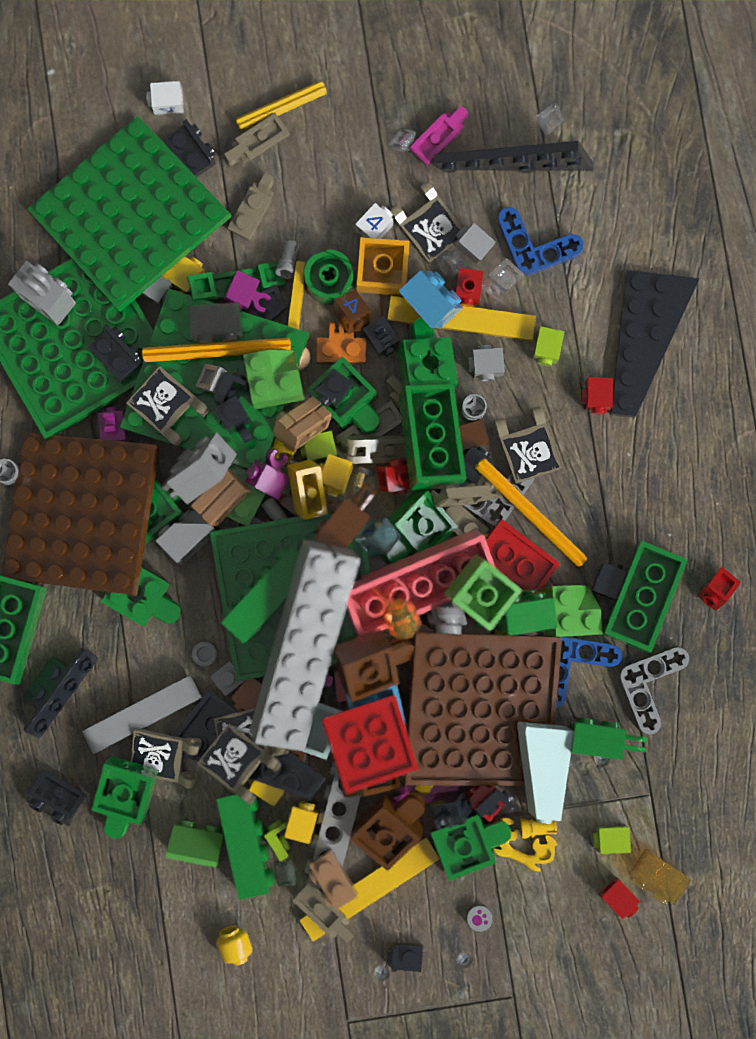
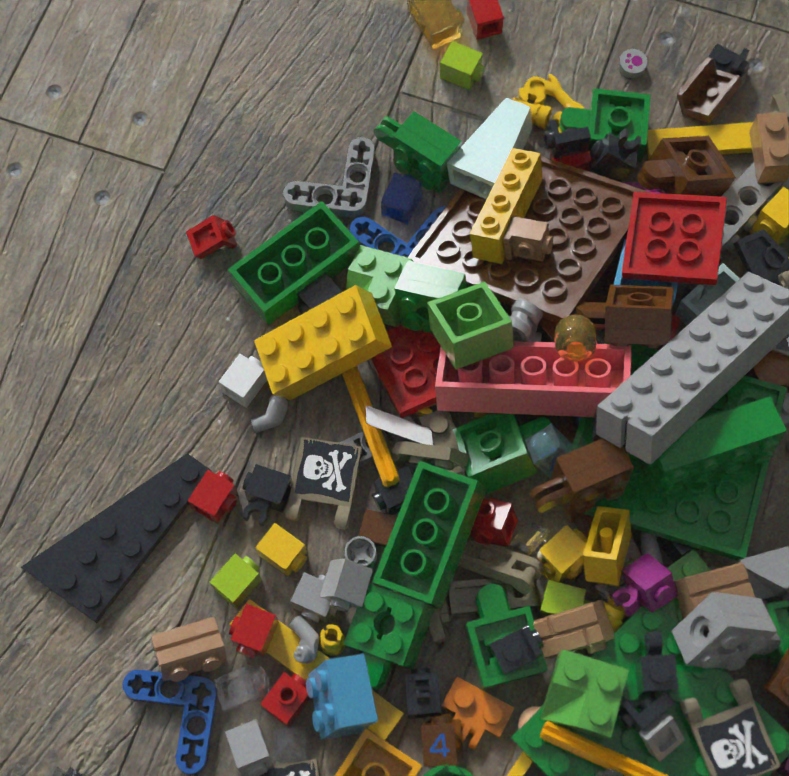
camera: 150 degrees left, 15 degrees down
(407, 919) = (707, 91): none -> reddish brown bracket
(460, 341) = (332, 640): none -> yellow pin
(470, 374) = (345, 584): none -> light grey brick
(475, 330) = (308, 643): none -> light grey arm
(477, 688) = (527, 239): none -> medium nougat brick
(496, 507) = (398, 426): none -> white sticker
(508, 714) = (508, 198): none -> yellow brick
(515, 315) = (253, 631): none -> red brick
(528, 382) = (282, 550): none -> yellow brick
(551, 281) = (189, 649): none -> medium nougat brick
(564, 418) = (265, 490): none -> black brick
(585, 539) = (322, 343): none -> yellow brick
(591, 477) = (274, 415): none -> light grey arm
(596, 697) = (401, 198): none -> clear blue brick
(628, 490) = (243, 379): none -> white brick

